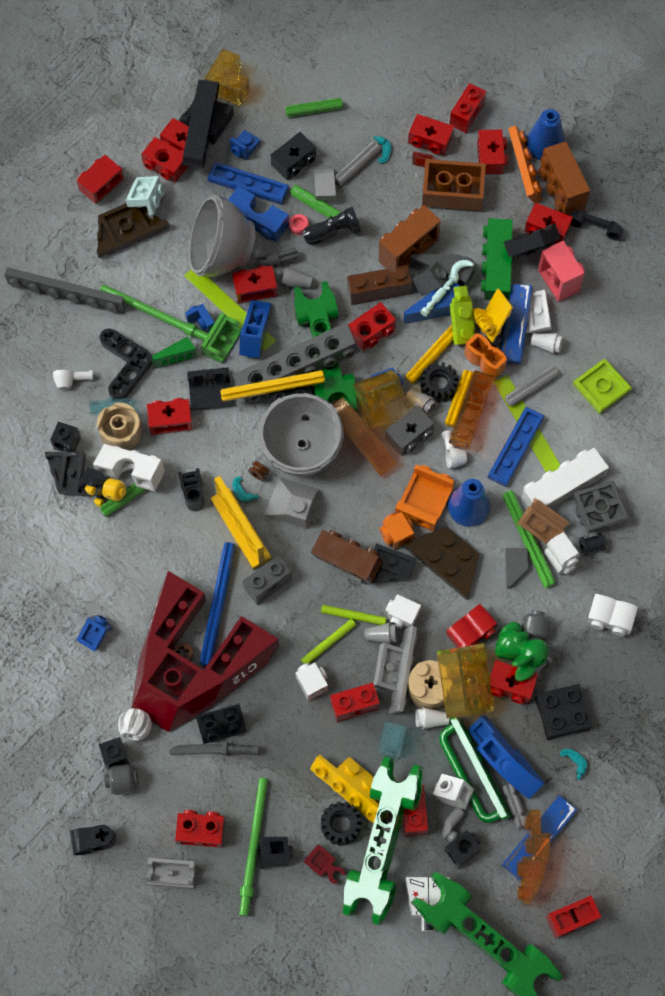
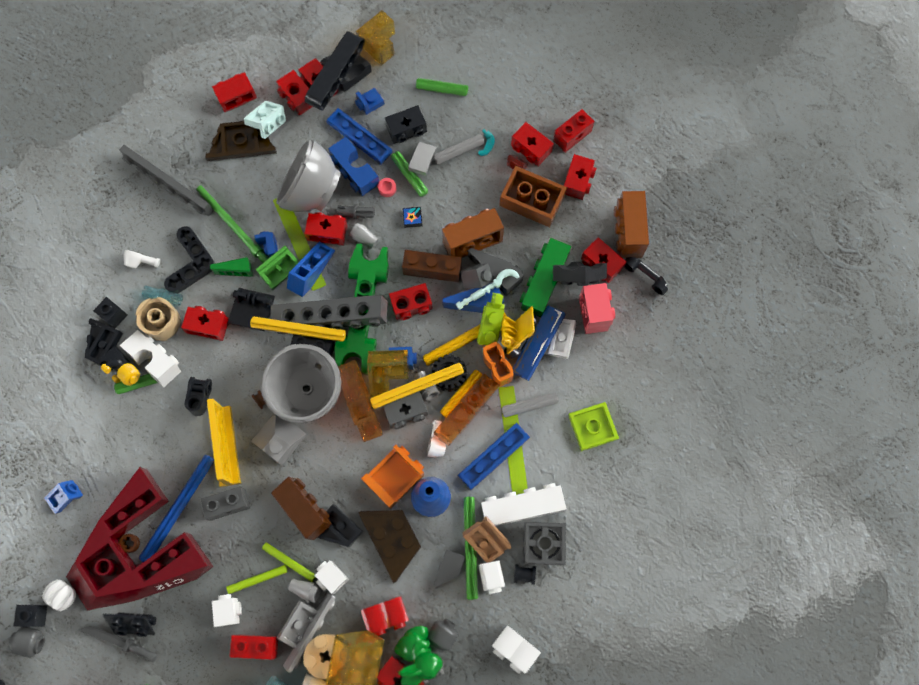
camera: 20 degrees right, 5 degrees up
(239, 492) = (238, 414): teal piece -> none
(320, 231) = (402, 200): black piece -> none
(337, 245) = (412, 217): none -> tile
(396, 530) = (356, 497): orange brick -> none
(414, 401) = (416, 386): none -> yellow axle
(527, 169) = (604, 194): orange plate -> none
(545, 133) = (632, 177): blue cone -> none
(548, 342) = (560, 369): white cone -> none

